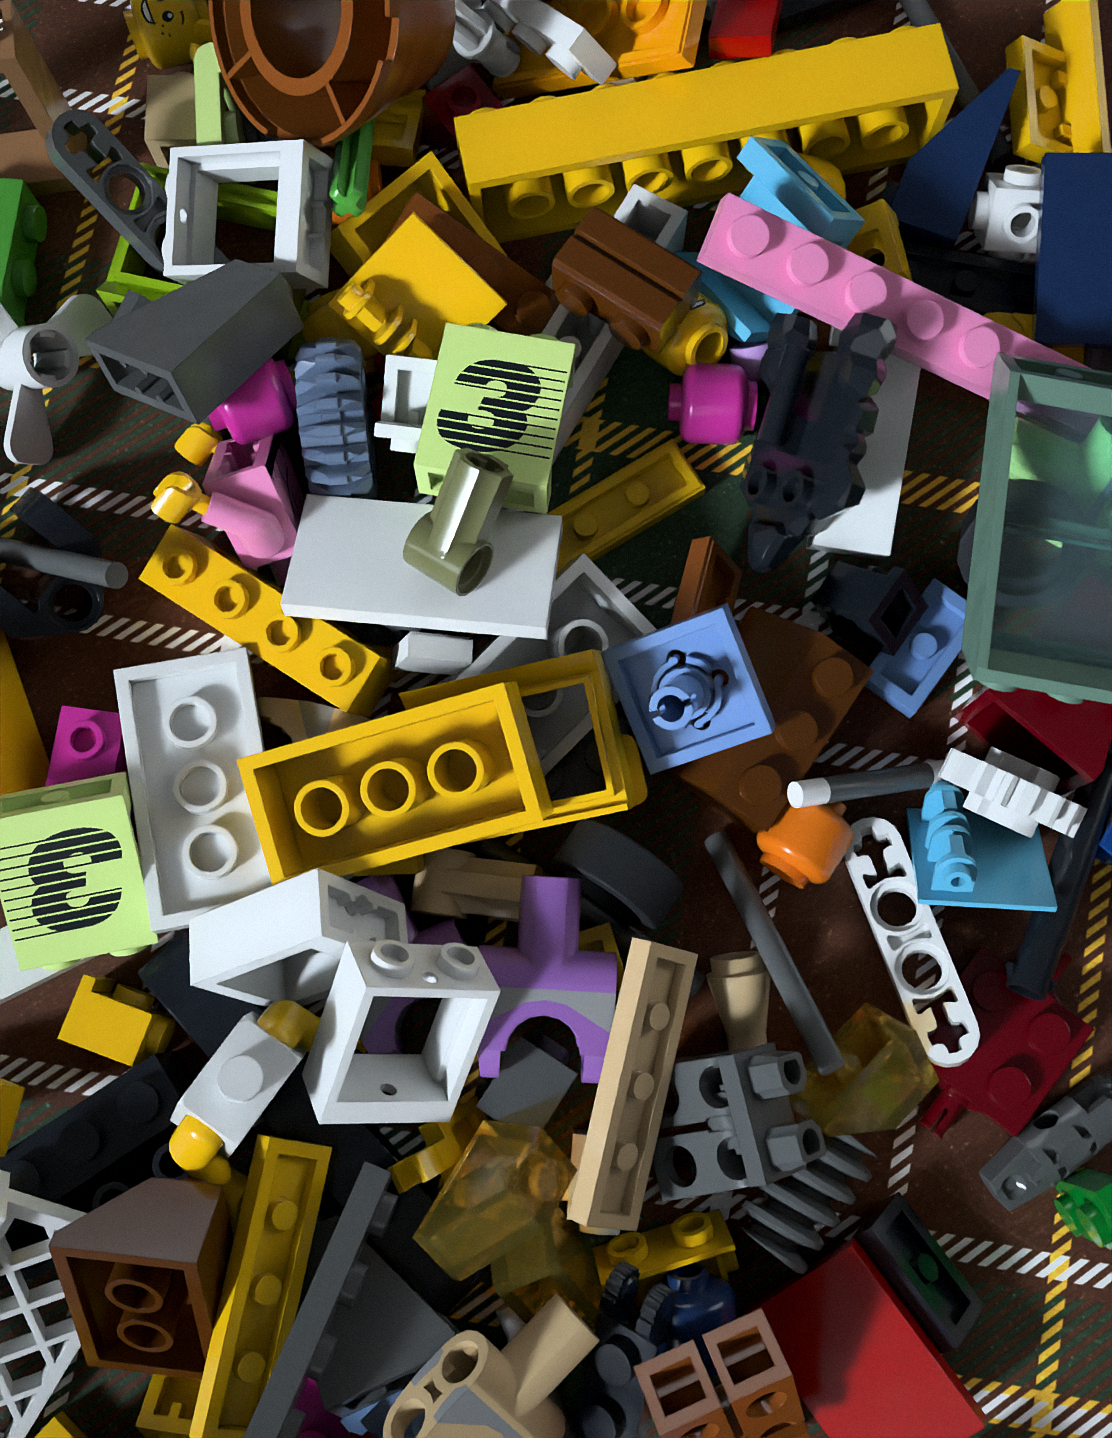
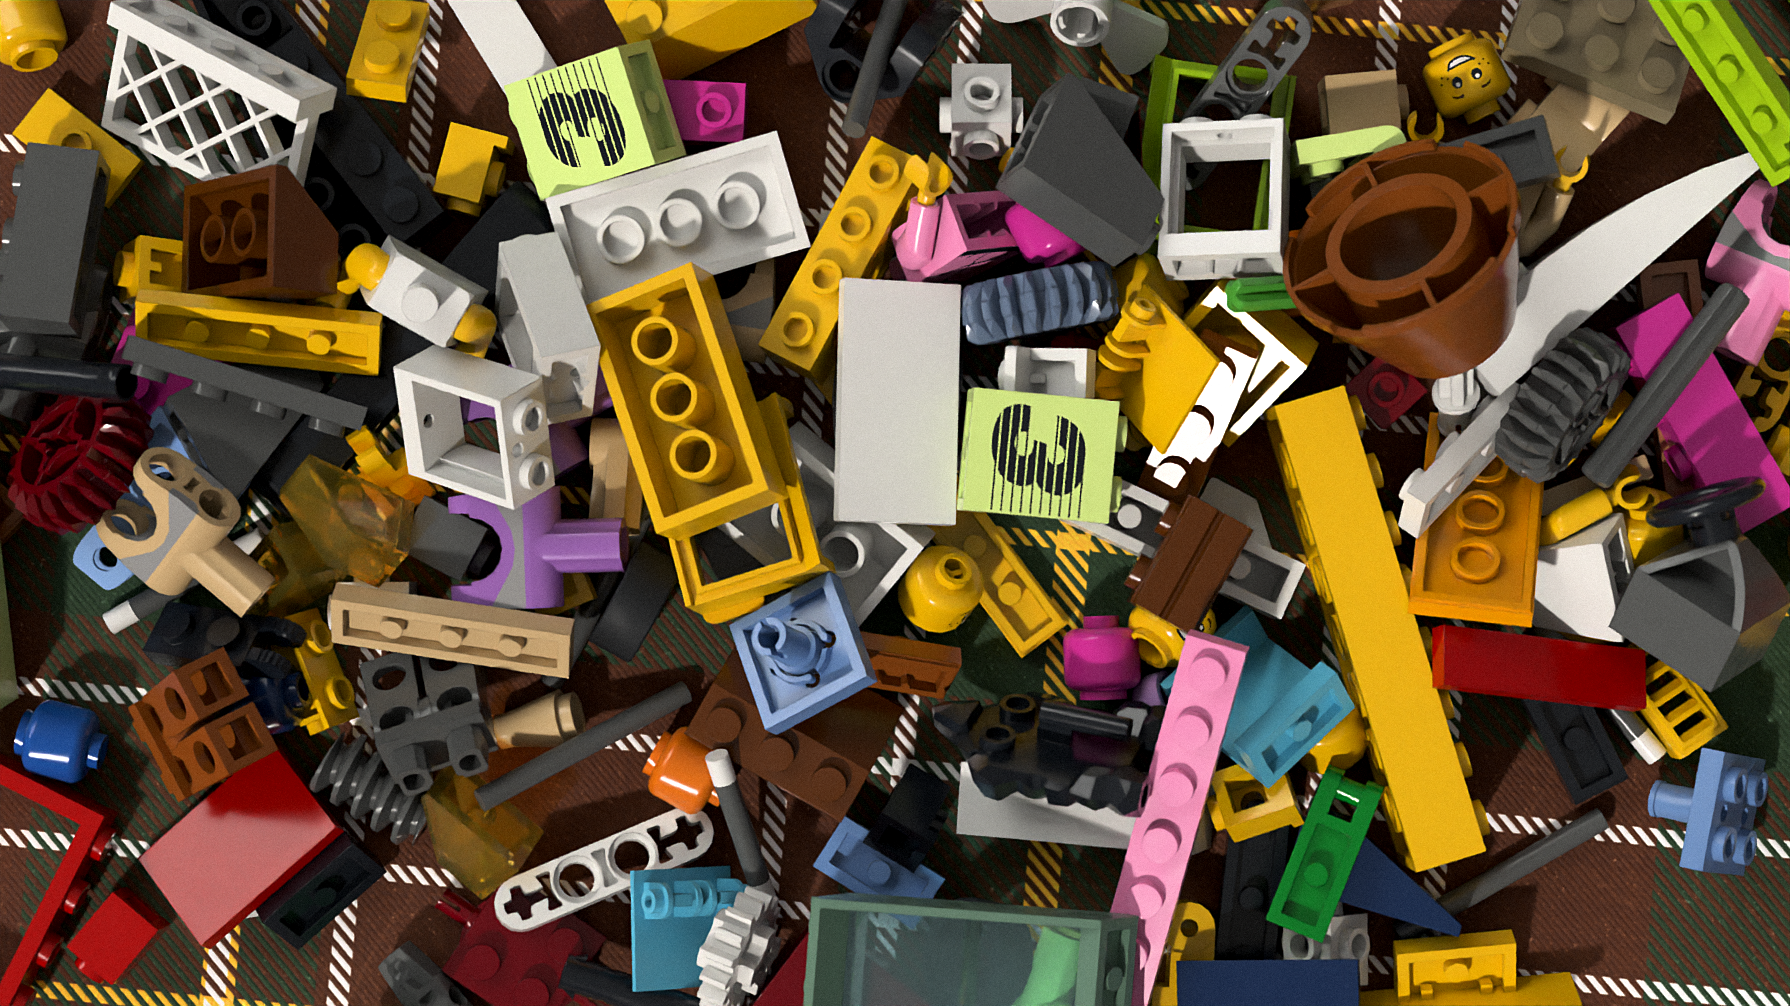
camera: 85 degrees right, 10 degrees up
(125, 470) = (981, 110): none -> white brick
(432, 653) = (820, 416): white tile -> none
(453, 537) = (912, 430): olive piece -> none
(630, 551) = (936, 593): none -> yellow head
(933, 185) = (1324, 856): none -> green plate

